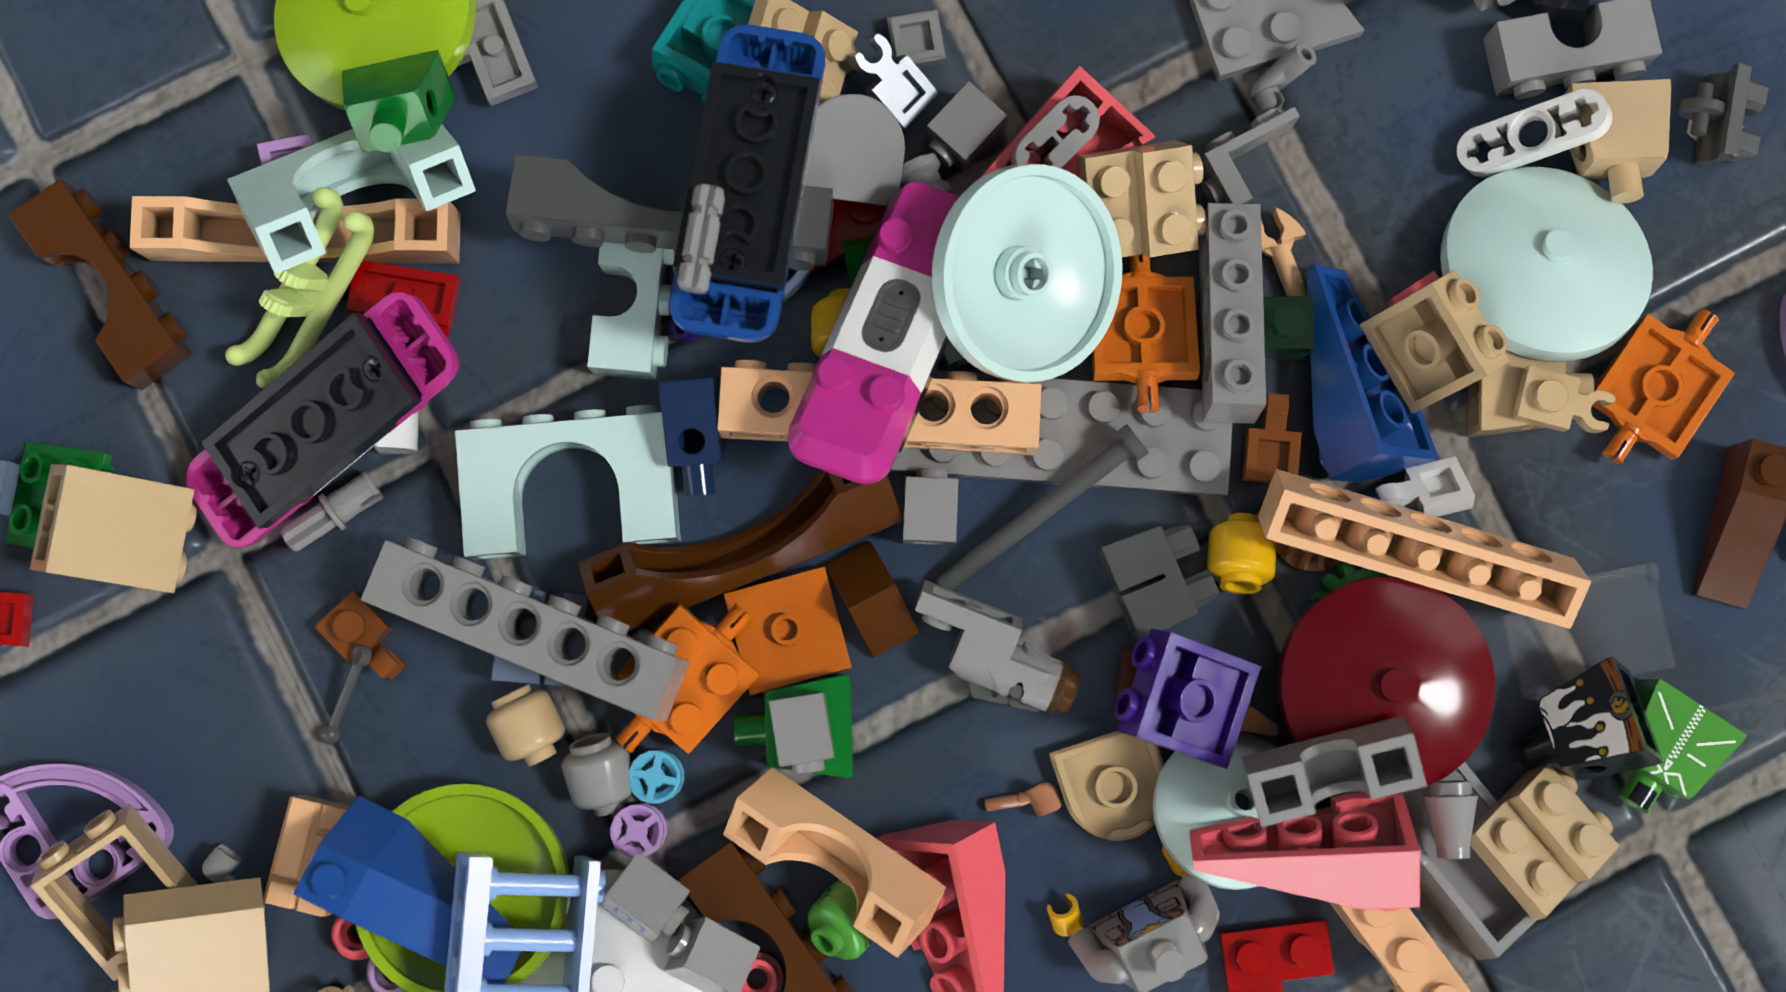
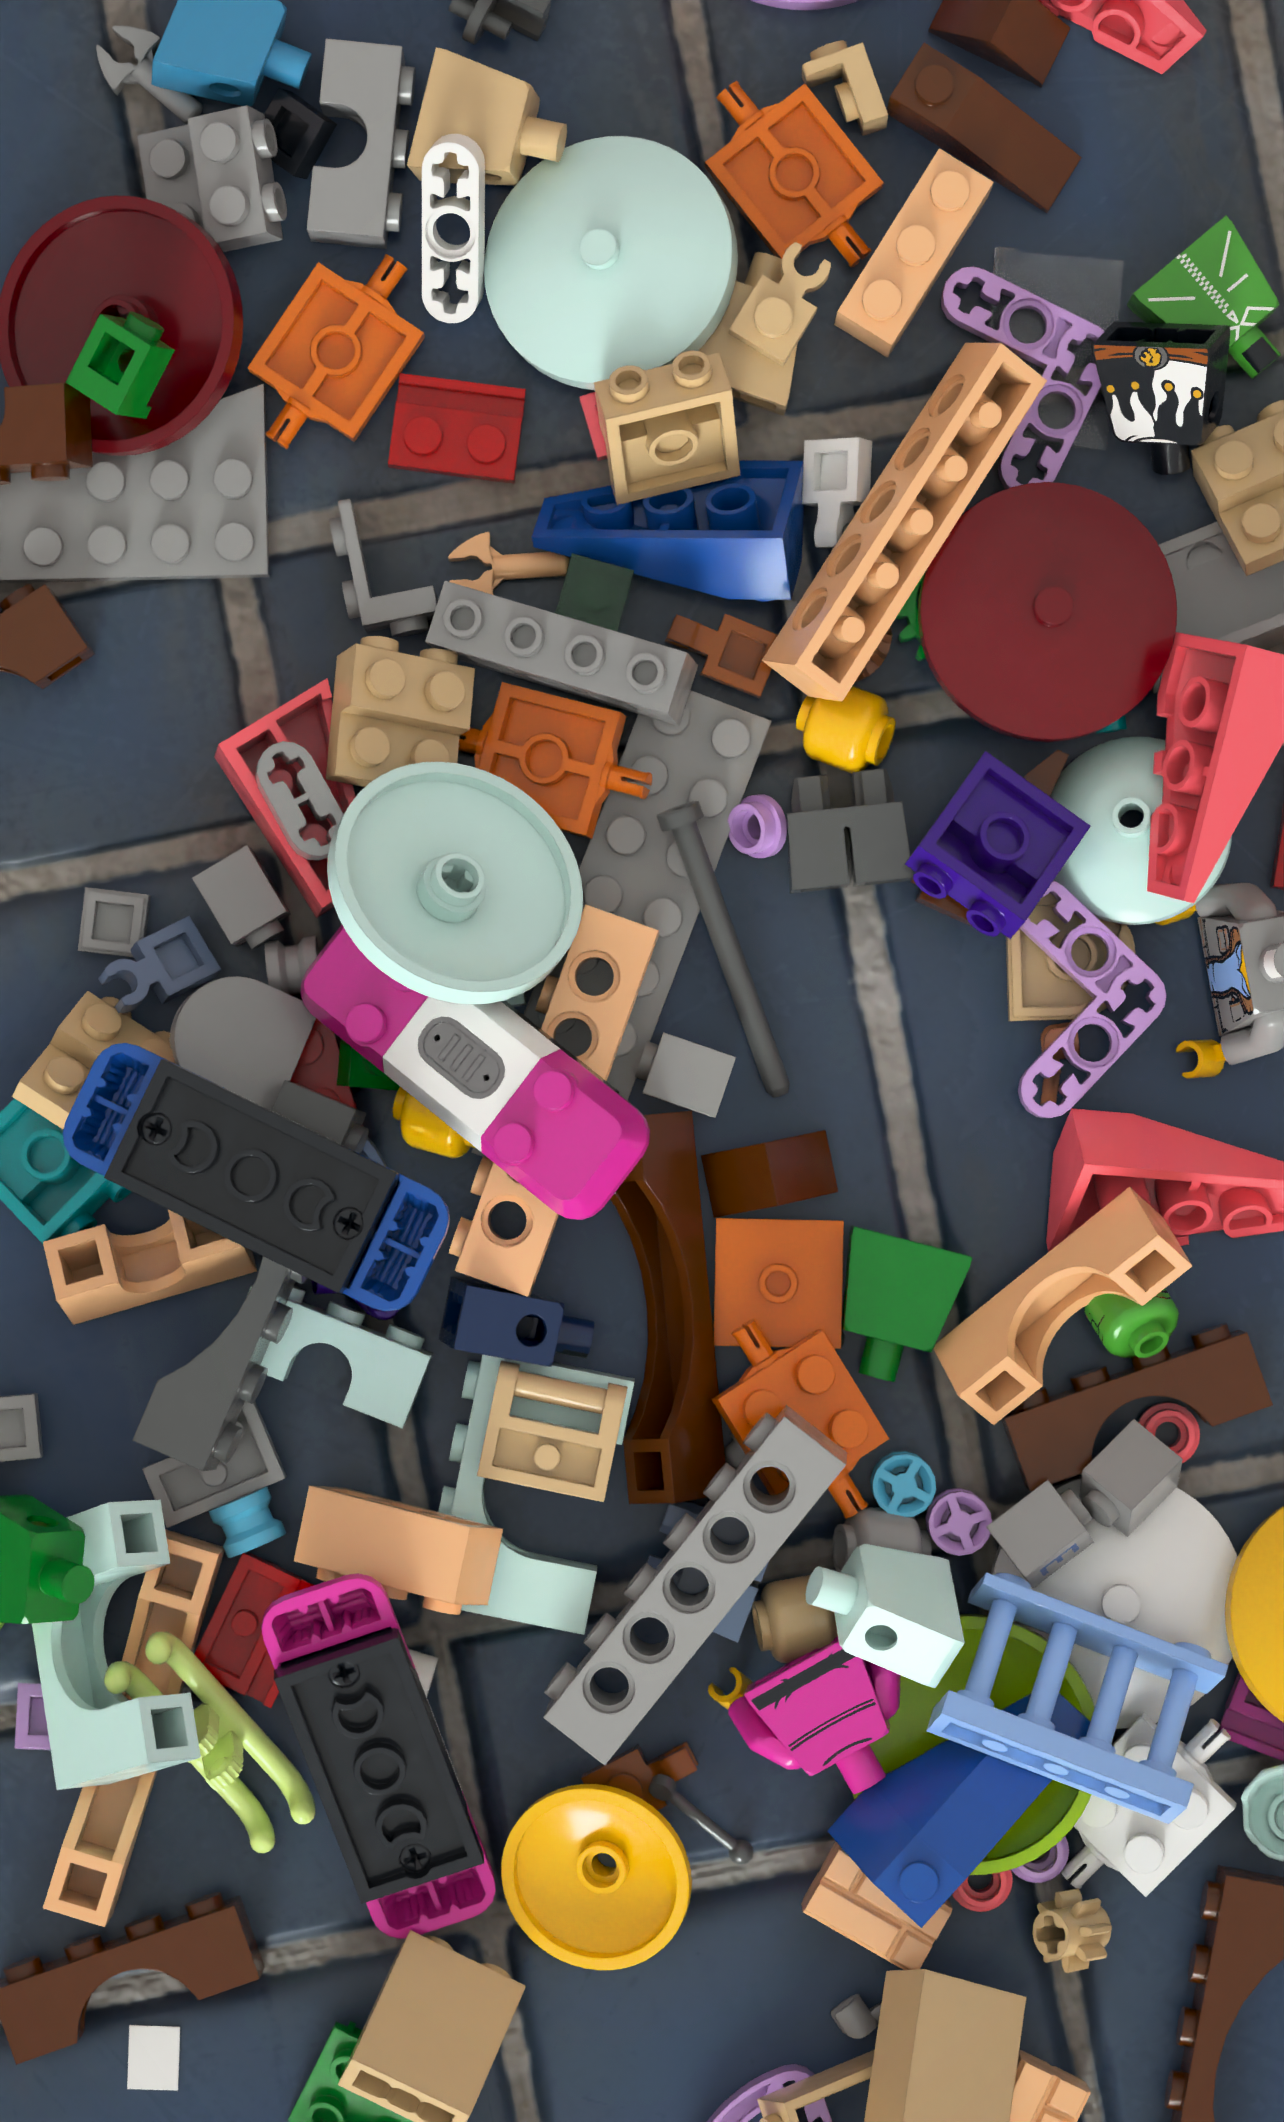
camera: 75 degrees left, 5 degrees up
(49, 325) = (153, 2057): none -> white sticker
(253, 616) = (574, 1902): none -> yellow dish
(332, 511) = (481, 1777): light grey axle -> none
(461, 763) = (817, 1713): none -> dark pink torso
(482, 272) = (247, 1522): none -> medium azure wheel
(491, 390) = (399, 1546): none -> light nougat brick
(525, 259) = (191, 1492): none -> light grey plate
(548, 795) = (893, 1610): none -> light aqua torso
(598, 482) = (549, 1453): none -> tan plate
(643, 106) = (109, 1272): none -> light nougat arch
(701, 238) = (318, 1251): light grey axle -> none
(802, 732) = (906, 1299): light grey brick -> none
(991, 658) = (877, 1055): light grey plate -> none
(1100, 817) = (1103, 986): none -> lavender beam
(1142, 508) = (758, 826): none -> lavender plate
(1284, 71) = (285, 497): light grey arm -> none
(1366, 759) = (1123, 755): light grey arch -> none
(1377, 187) = (457, 428): none -> red plate
(1407, 77) = (336, 351): none -> orange plate
(1451, 815) = (1219, 584): light grey cone -> none
(1586, 627) = (1048, 353): none -> lavender beam
(1631, 496) = (913, 253): none -> light nougat brick
(1755, 405) = (859, 92): none -> tan bracket

